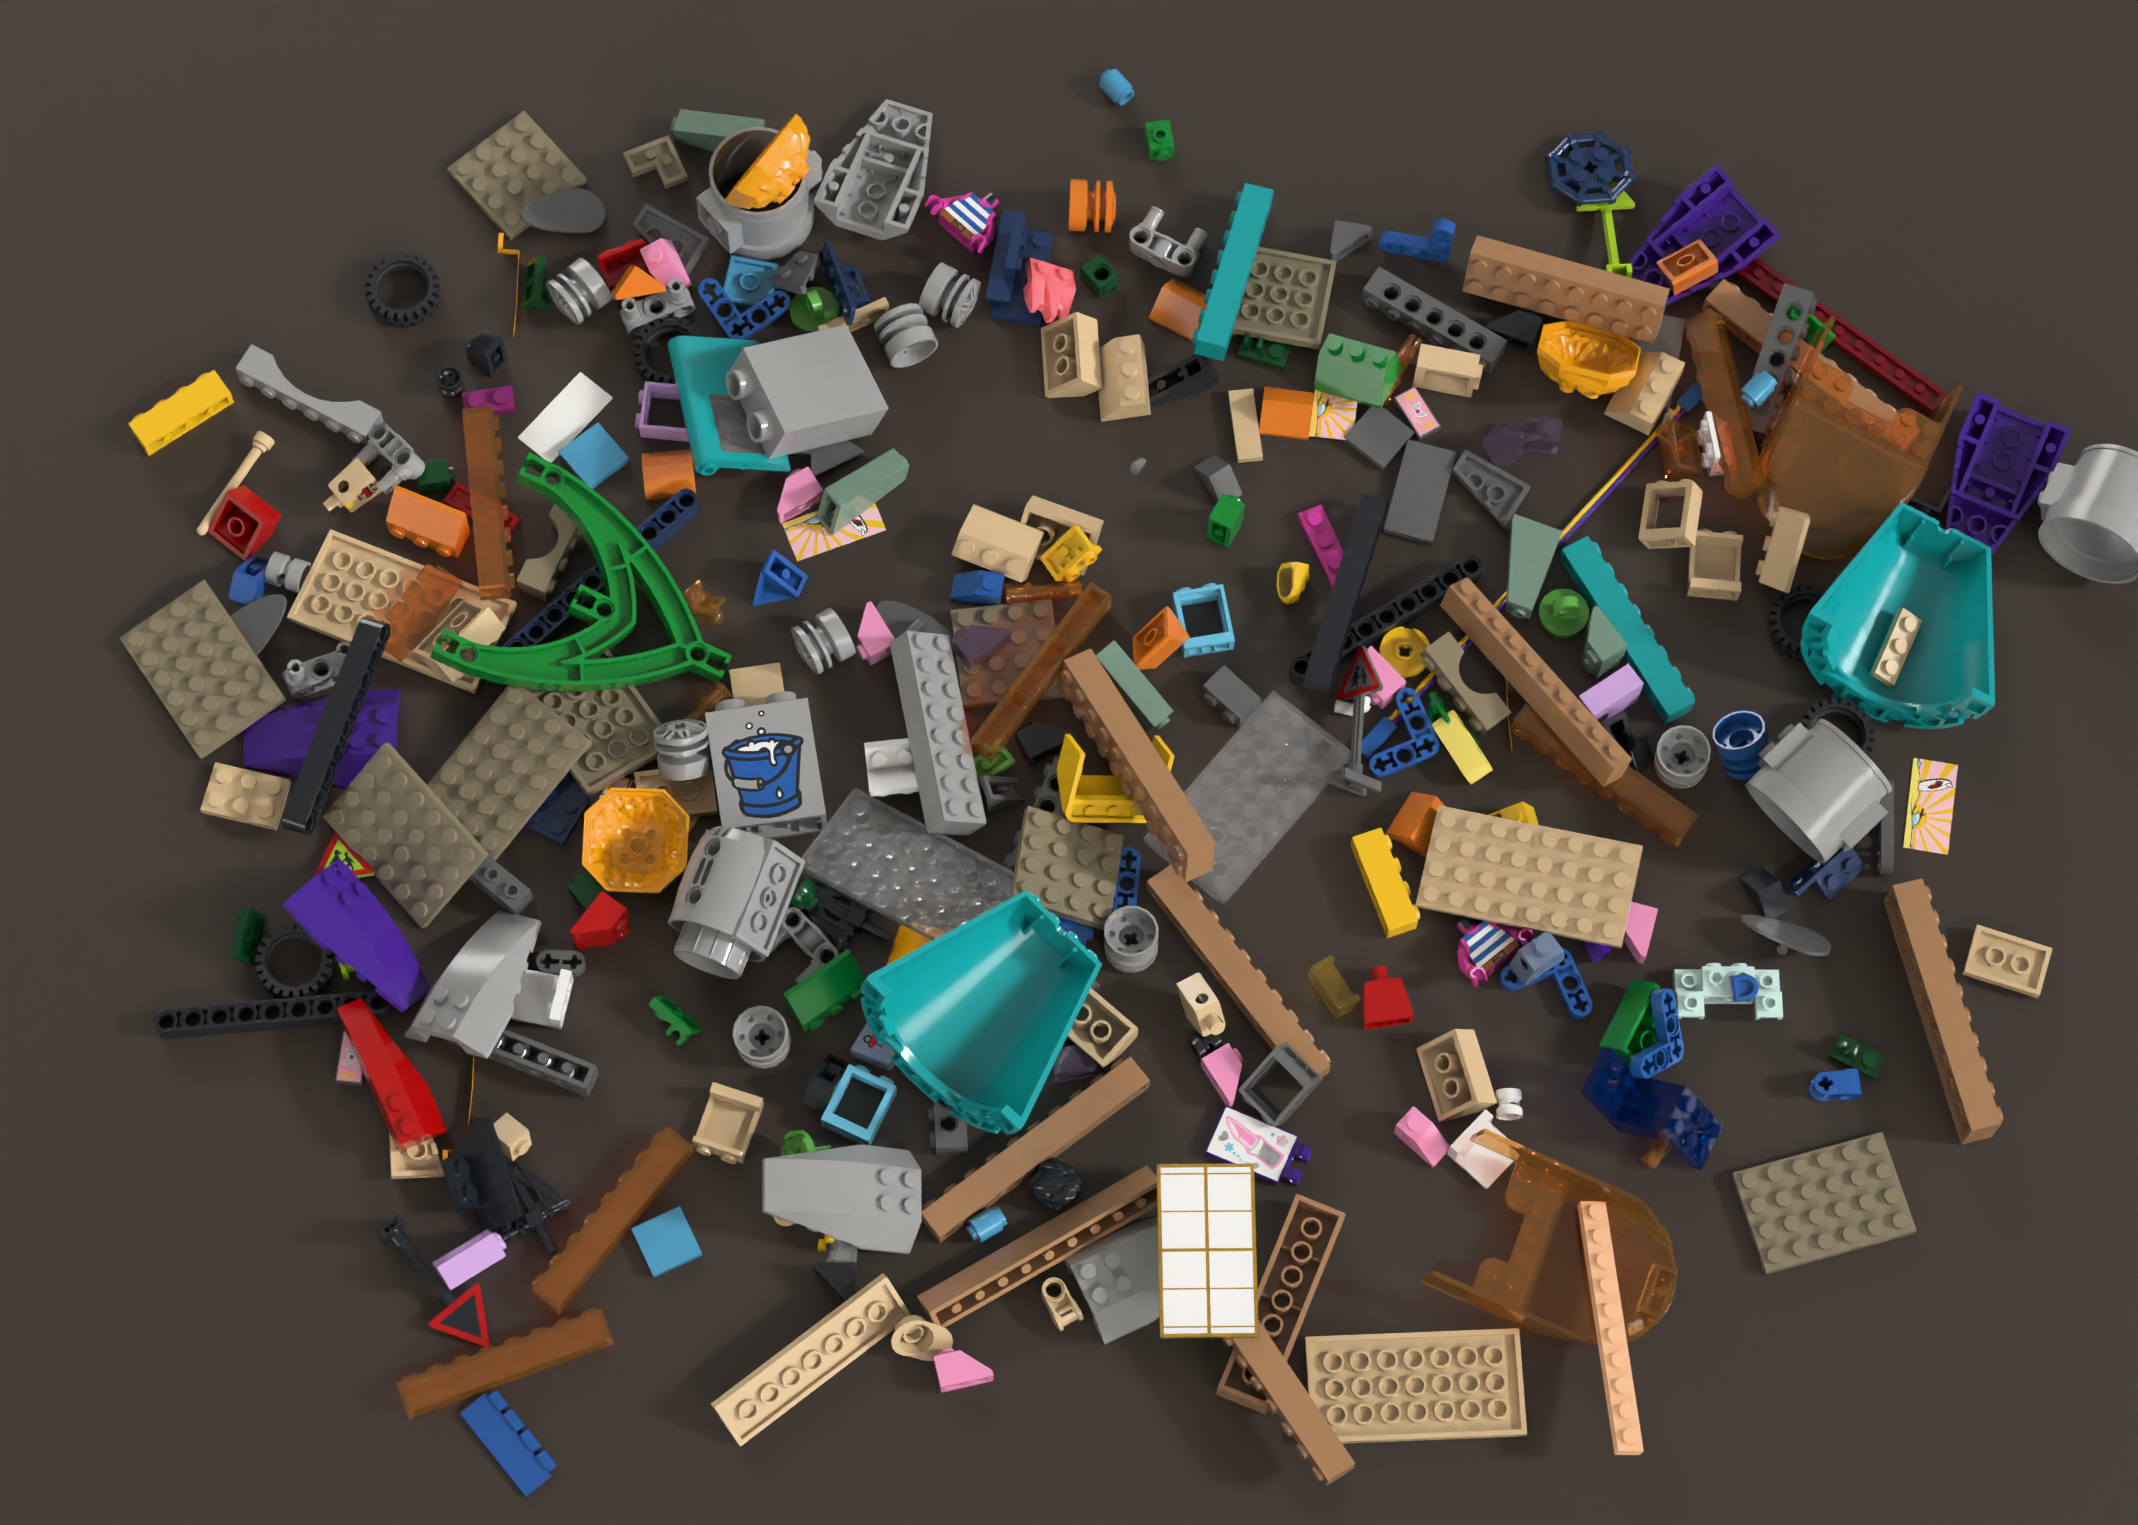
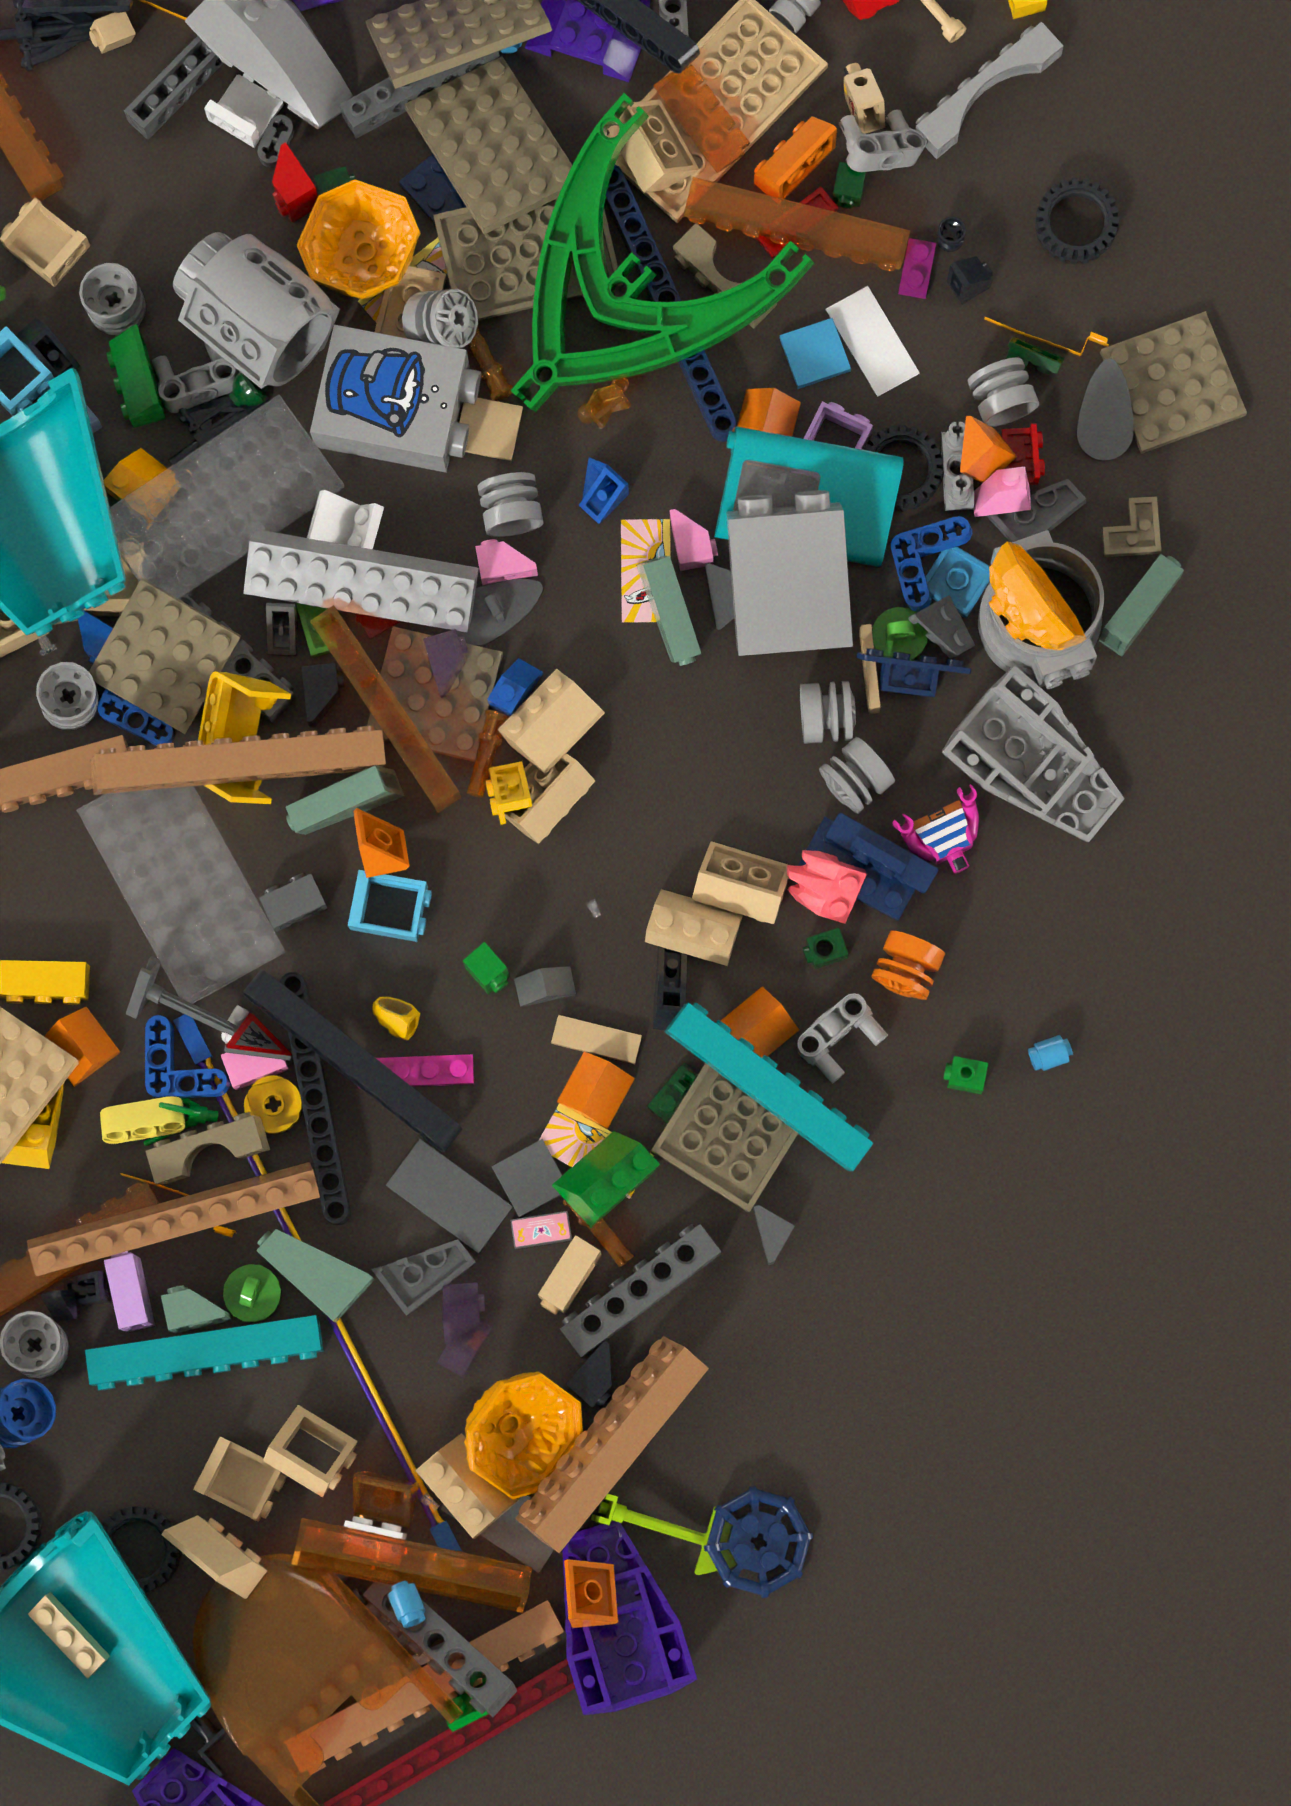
camera: 120 degrees right, 10 degrees up
(668, 1011) = (173, 228): green plate -> none
(1434, 249) = (728, 1319): blue beam -> none

